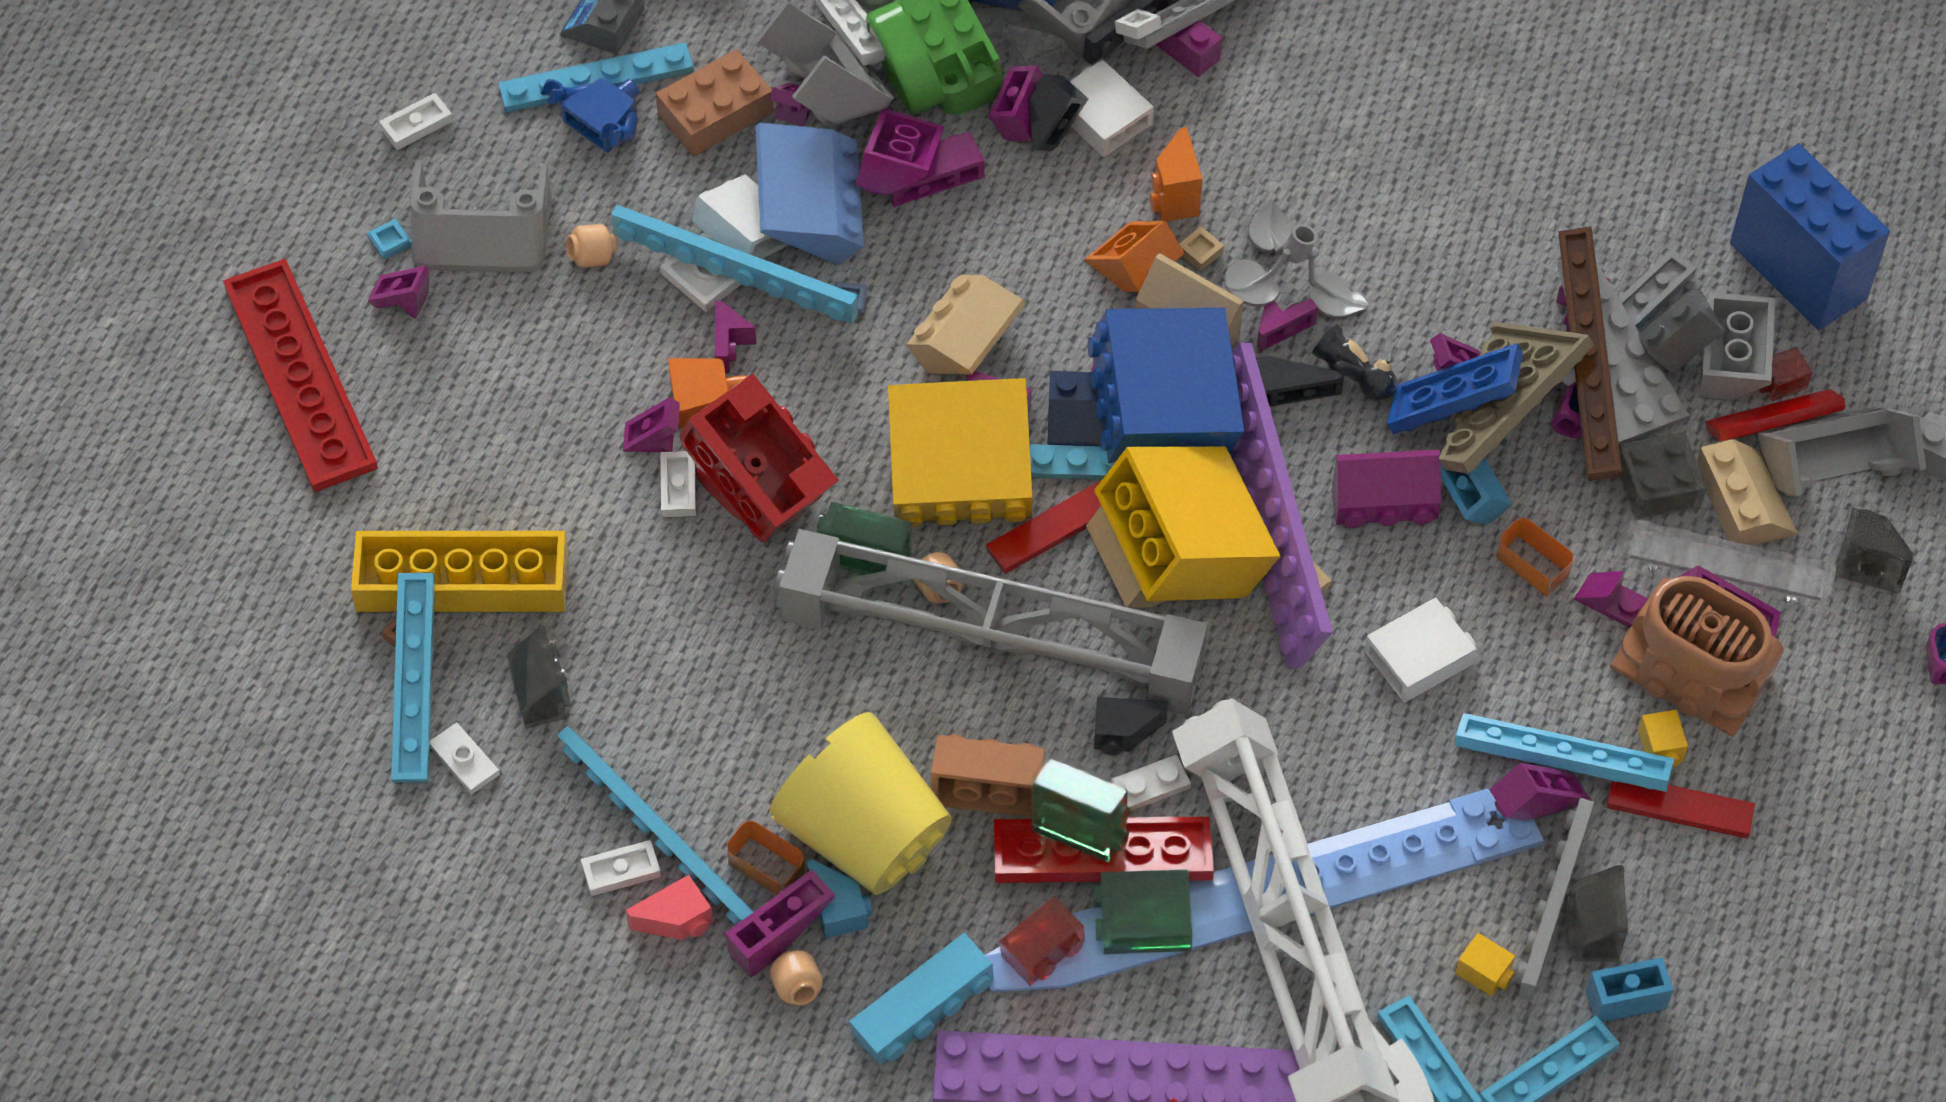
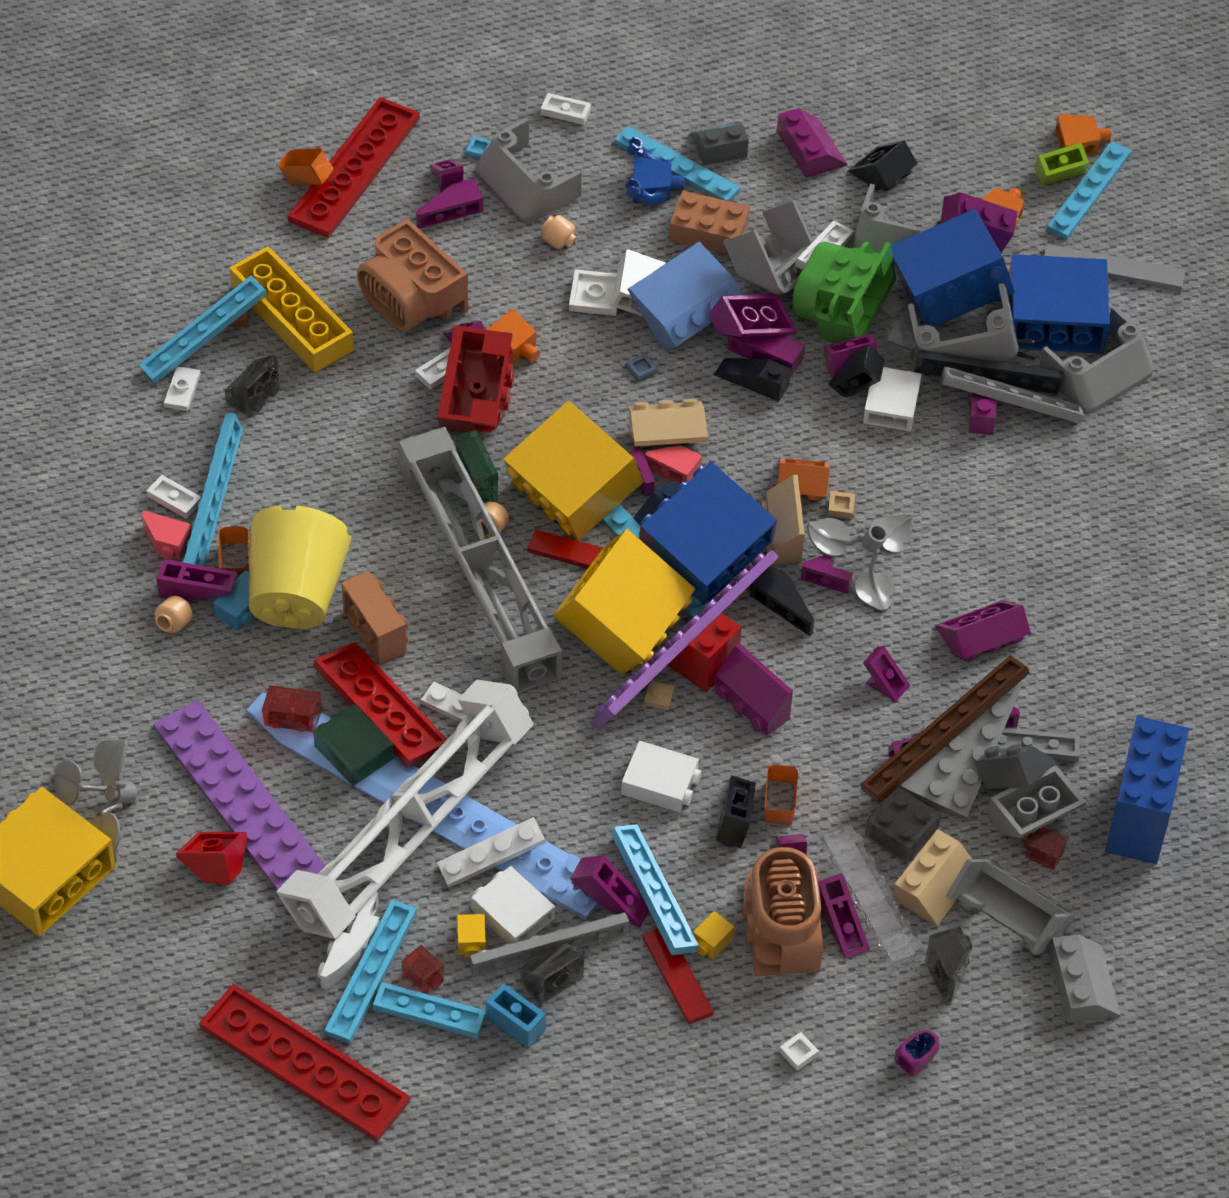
camera: 50 degrees right, 5 degrees down
(256, 411) = (303, 165): none -> orange piece
(454, 306) = (452, 203): none -> magenta slope
(544, 423) = (412, 278): none -> nougat brick
(730, 331) = (558, 325): magenta slope -> none
(735, 264) = (604, 302): medium azure plate -> none
(922, 1000) = (208, 678): medium azure brick -> none
(960, 204) = (756, 375): none -> black slope
(1019, 354) = (674, 463): none -> coral slope
(1080, 810) = (383, 668): clear green brick -> none
(1126, 723) = (473, 663): black slope -> none
(1138, 24) = (952, 367): white tile -> none
(1177, 180) = (872, 458): orange slope -> none
(1314, 486) = (707, 652): none -> red slope
(1350, 360) = (828, 621): black piece -> none
(1395, 873) = (491, 852): none -> white plate
(1455, 389) = (850, 677): blue plate -> none
(1468, 236) = (985, 629): none -> magenta slope
(1477, 493) = (800, 733): dark azure brick -> none
(1479, 899) = (512, 906): none -> white brick
(1495, 1041) = (423, 969): none -> clear red brick
(1524, 612) = (736, 812): none -> black slope
(1545, 361) = (891, 700): dark tan wing -> none
(1775, 415) = (1011, 862): red tile -> none
(1862, 759) = (798, 1051): none -> white plate

